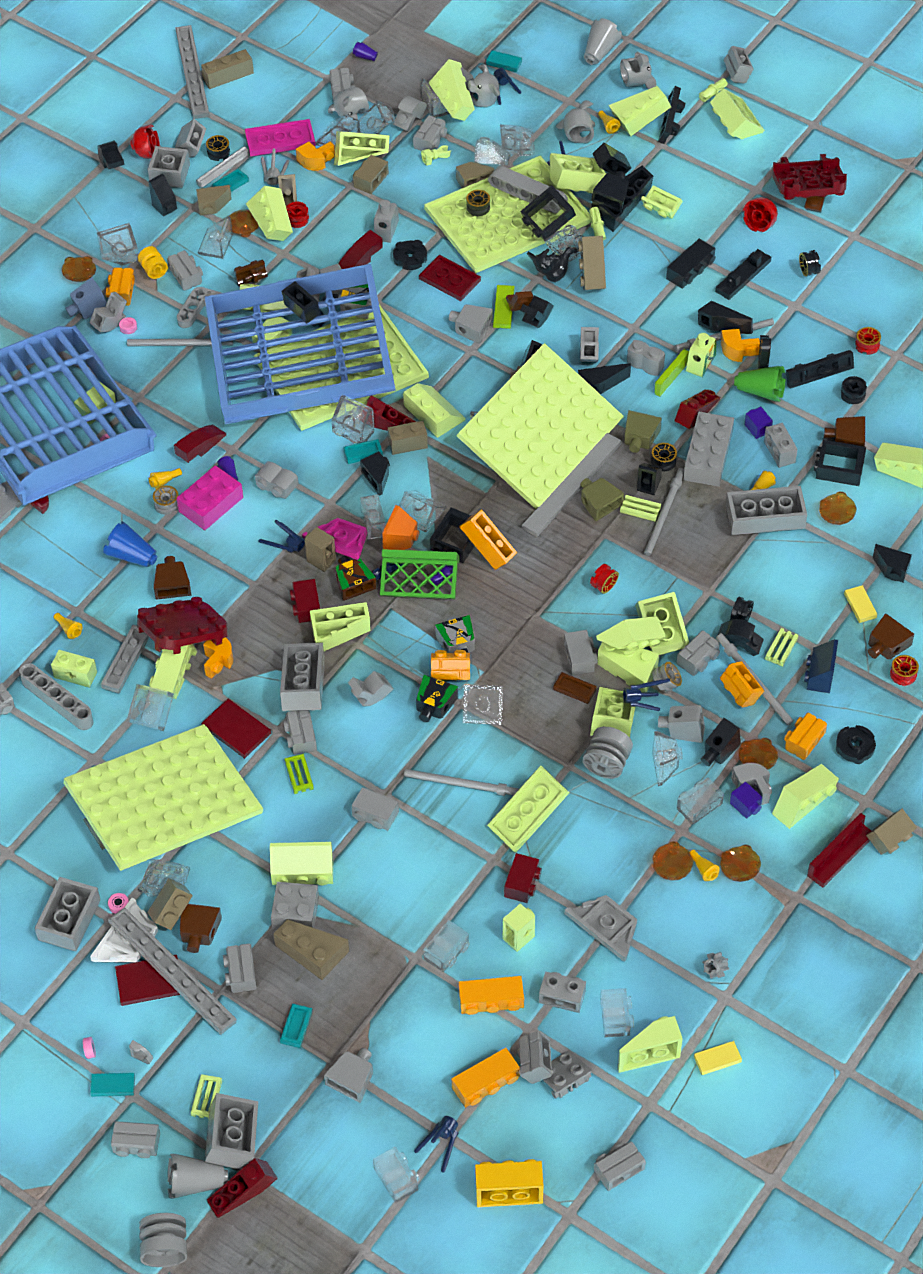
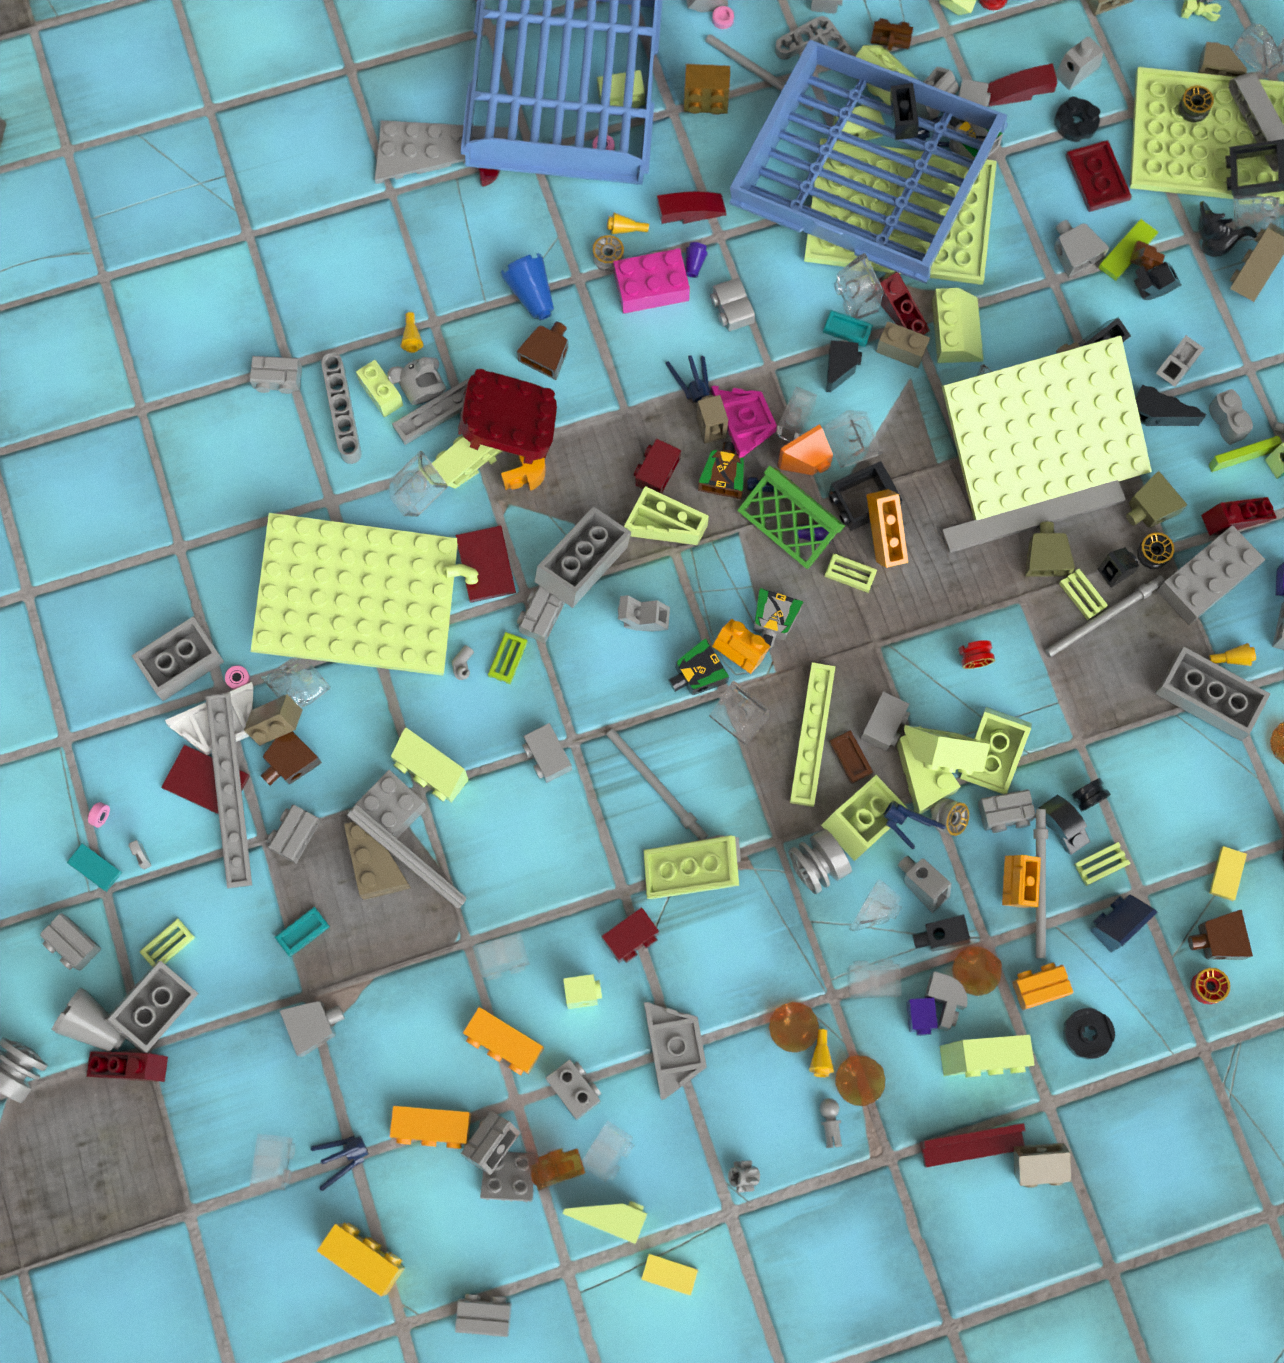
camera: 35 degrees right, 20 degrees up
(100, 644) = (418, 380): none -> light grey piece
(154, 367) = (707, 88): none -> pearl gold brick
(224, 738) = (461, 570): none -> yellowish green arm
(268, 796) = (460, 665): none -> light grey arm
(333, 925) = (406, 856): none -> light grey axle
(485, 587) = (846, 580): none -> yellowish green tile
(539, 689) = (812, 734): none -> yellowish green plate
(593, 1038) = (556, 1168): none -> clear orange brick
(735, 892) = (829, 1109): none -> light grey pin

